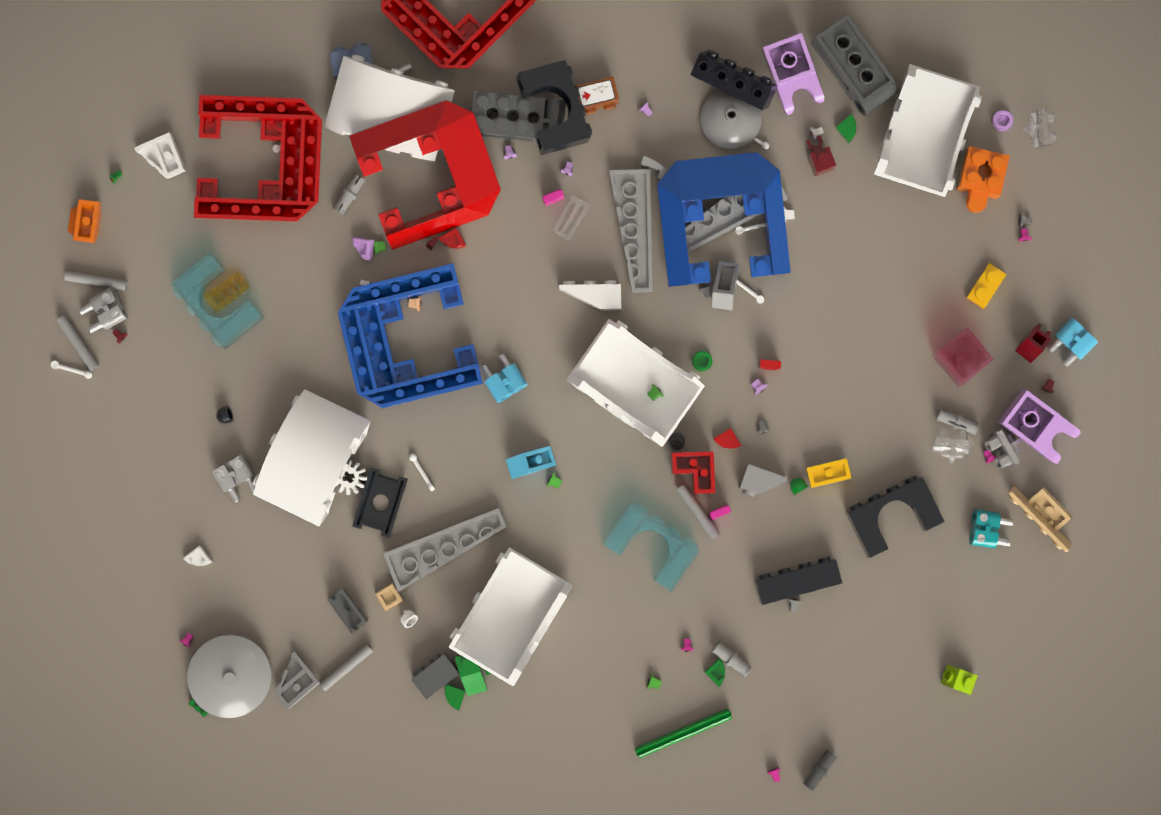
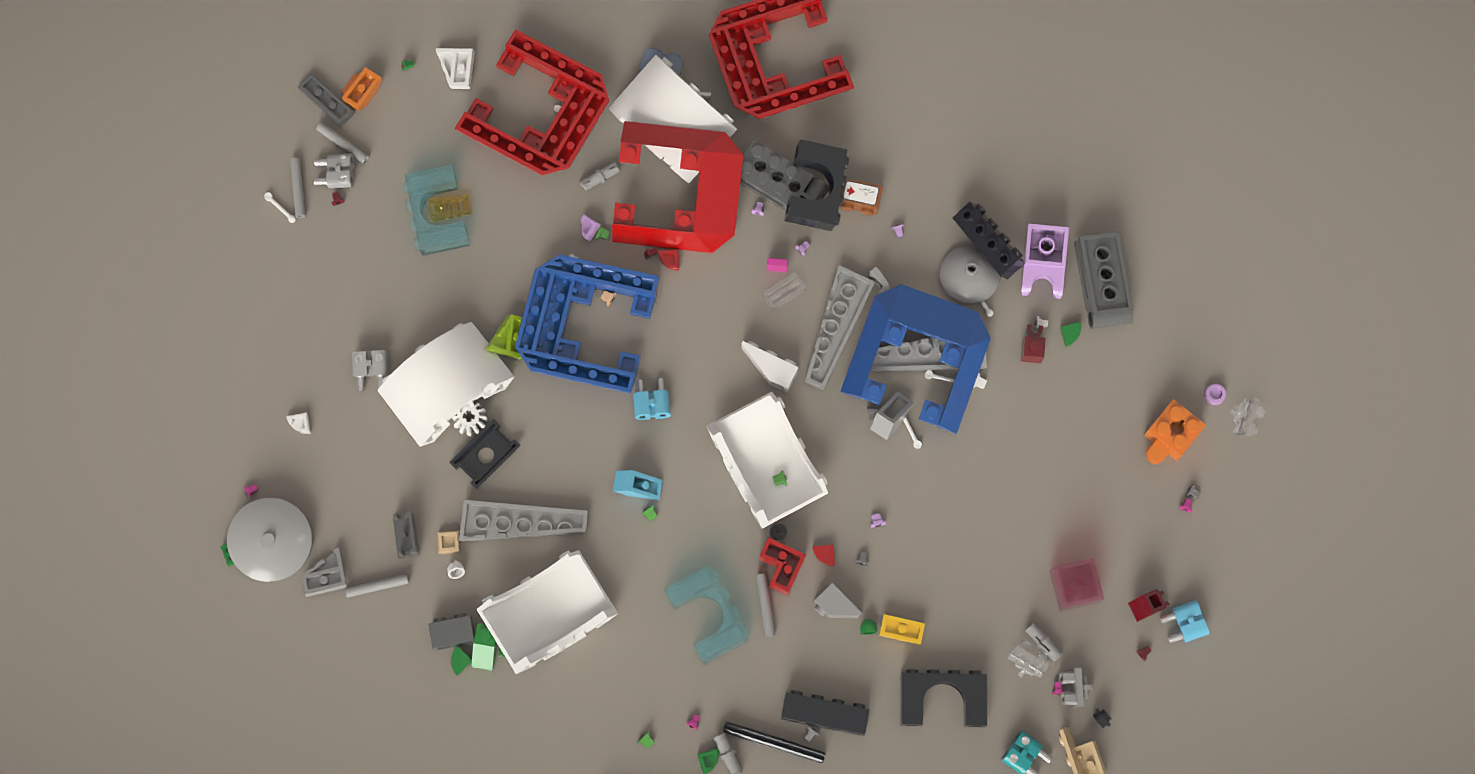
camera: 25 degrees right, 10 degrees down
(58, 247) = (326, 100): none -> dark grey tile
(224, 415) = (390, 310): black hinge -> none
(343, 387) = (506, 337): none -> lime wing
(413, 457) = (535, 429): white hinge -> none
(702, 361) = (837, 473): green tile -> none
(719, 512) = (784, 614): dark pink tile -> none
(765, 628) = (774, 742): none -> black axle
(769, 364) = (896, 505): red tile -> none
(927, 130) = (1142, 367): white panel -> none
(986, 286) = (1129, 533): yellow plate -> none
(1040, 463) = (1102, 718): none -> black plate
(1041, 429) = (1121, 685): lavender brick -> none

